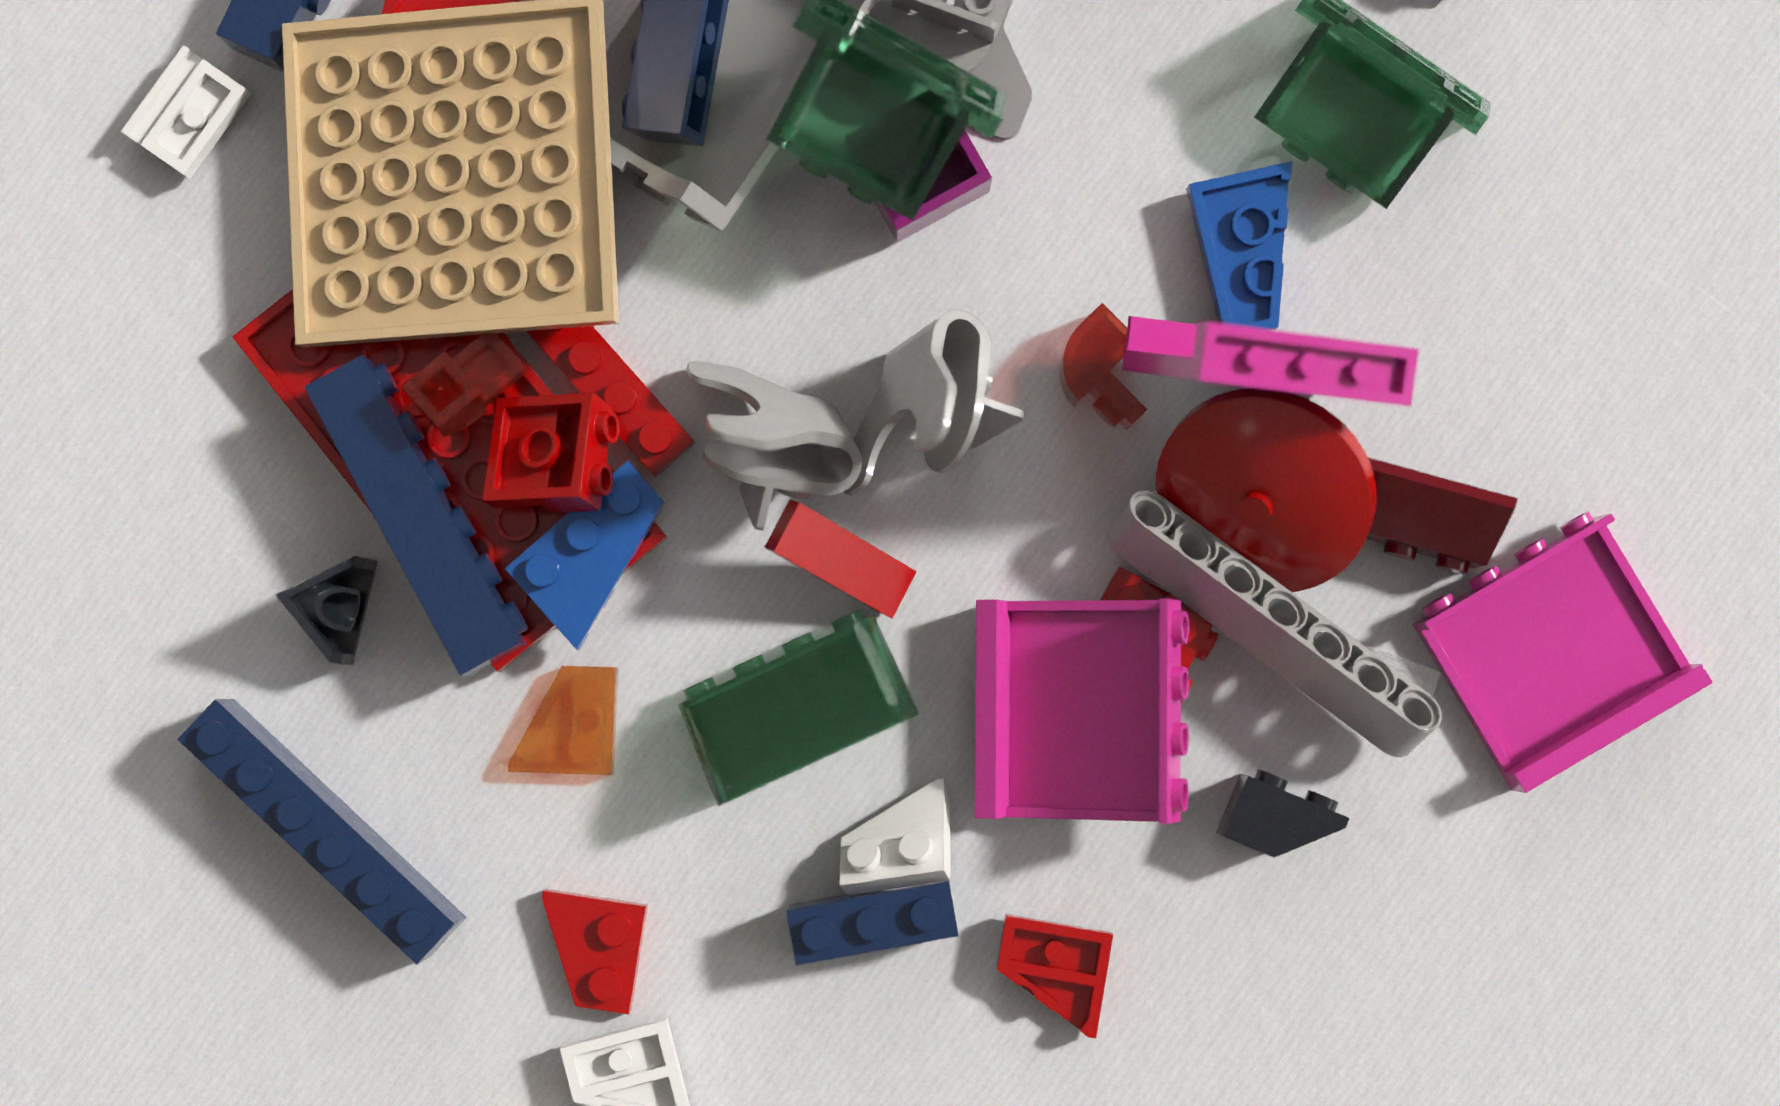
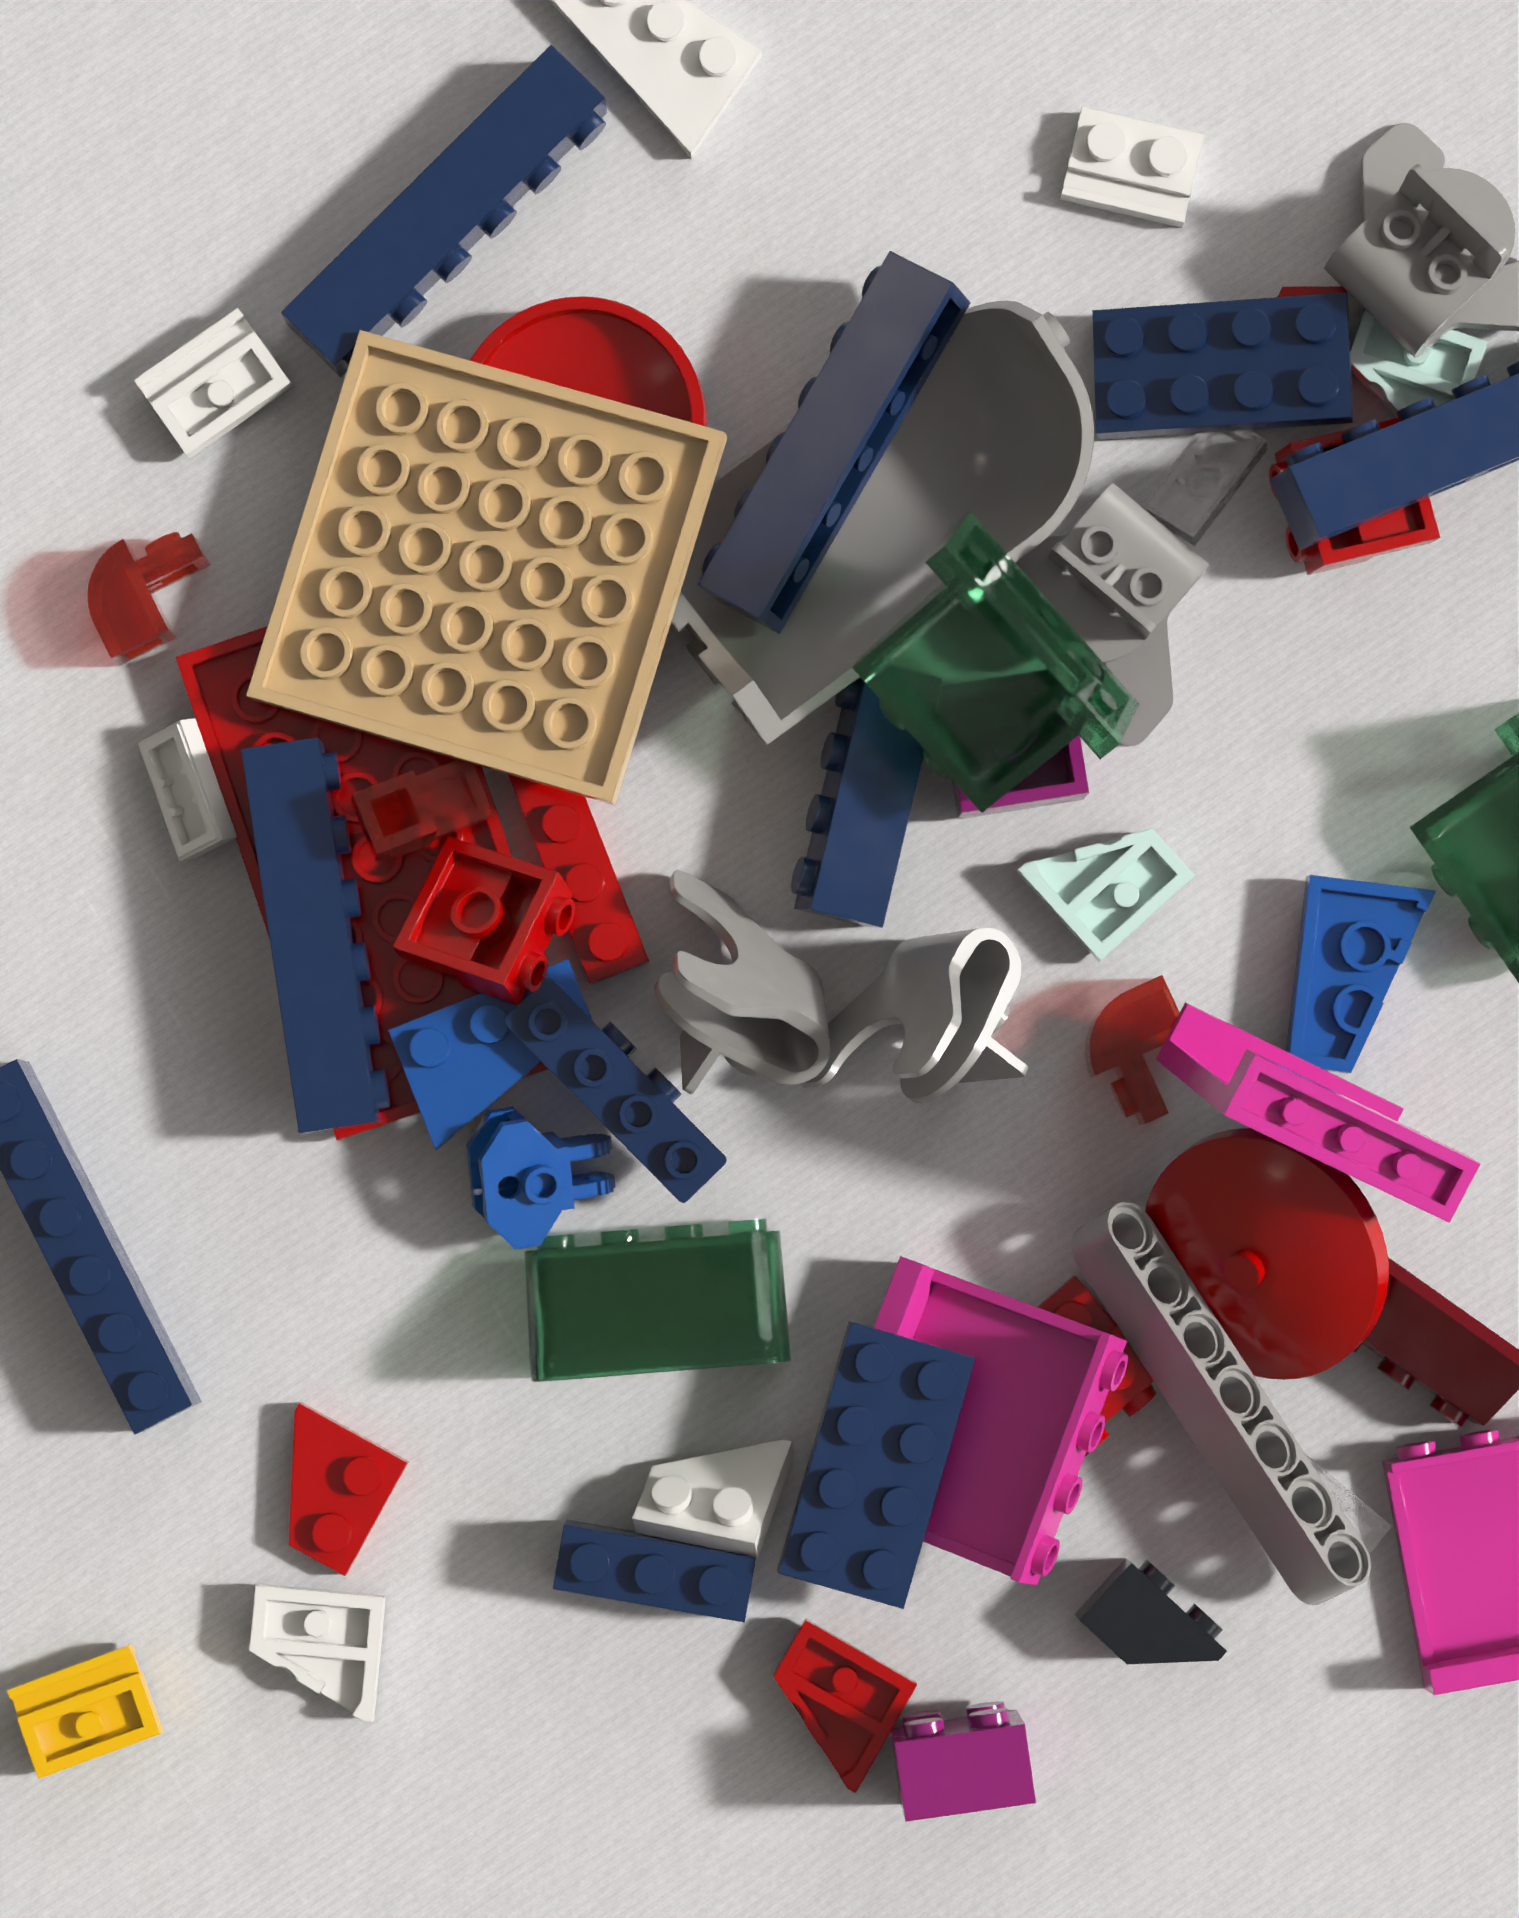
camera: 15 degrees right, 0 degrees up
(173, 297) = (124, 589): none -> clear red brick
(279, 438) = (187, 789): none -> white plate
(333, 606) = (180, 1002): black slope -> none
(573, 725) = (398, 1230): clear orange wing -> none
(664, 641) = (525, 1175): none -> blue hinge
(701, 549) = (624, 1099): none -> dark blue bracket
(817, 260) = (859, 815): none -> dark blue brick
(840, 558) = (765, 1156): tile -> none
(1017, 772) = (876, 1465): none -> dark blue plate
(1034, 252) = (1108, 886): none -> light aqua wing
(1172, 984) = (962, 1762): none -> magenta brick

